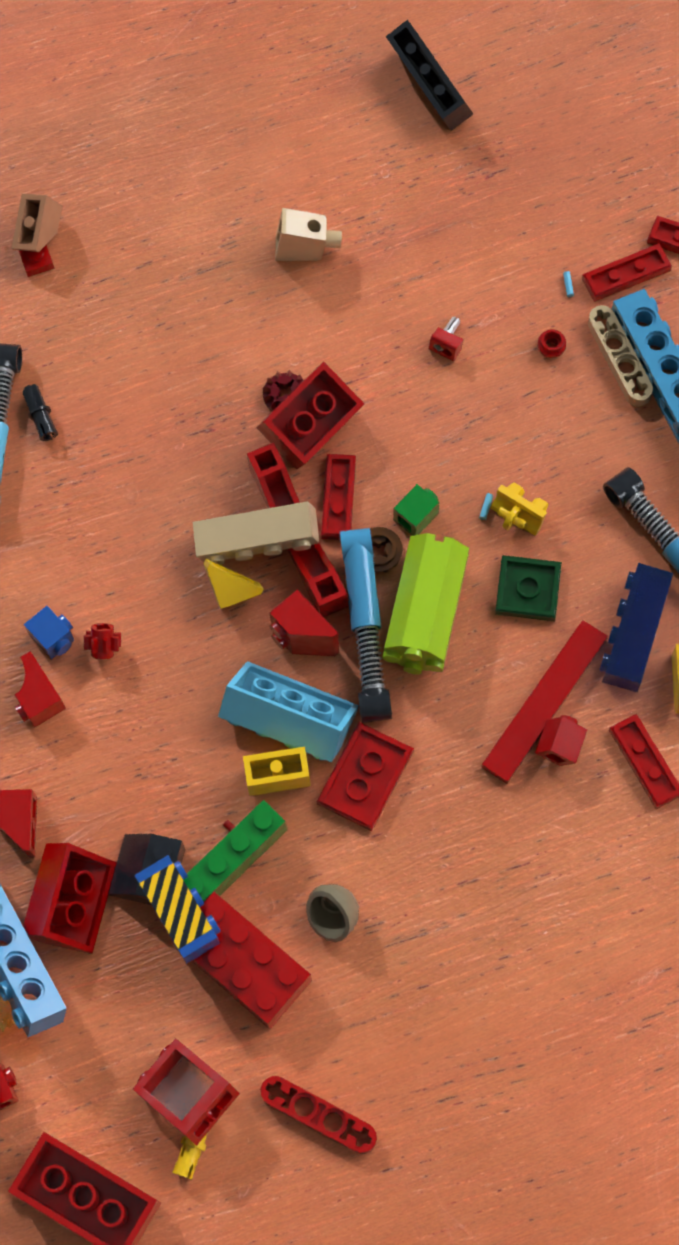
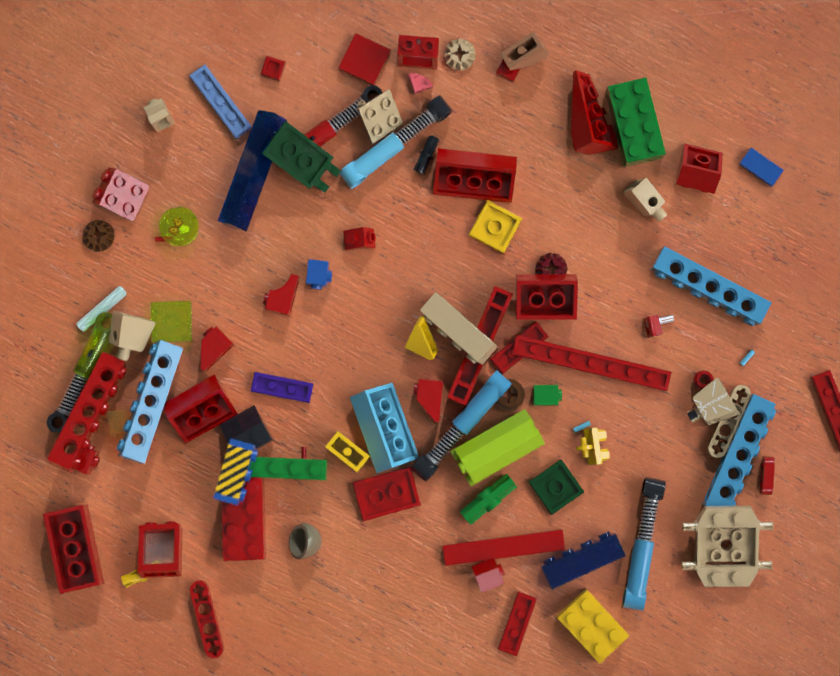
camera: 45 degrees right, 15 degrees up
(55, 557) = (359, 238): none -> red bracket
(102, 641) = (336, 304): red gear -> none
(110, 382) = (475, 175): none -> red slope
(135, 785) = (282, 387): none -> dark purple tile
(175, 233) = (588, 125): none -> red wedge
(185, 411) = (495, 226): none -> yellow tile
(215, 183) = (635, 122): none -> green brick
(326, 165) = (699, 168): none -> red slope
(381, 111) = (761, 167): none -> blue tile
(424, 437) = (591, 363): none -> red tile
(429, 75) = (803, 175): black brick -> none
(466, 241) = (758, 305): none -> dark azure brick
(475, 669) = (488, 499): none -> green piece
(587, 350) = (713, 404): none -> tan torso
(626, 272) = (781, 382): red tile -> none

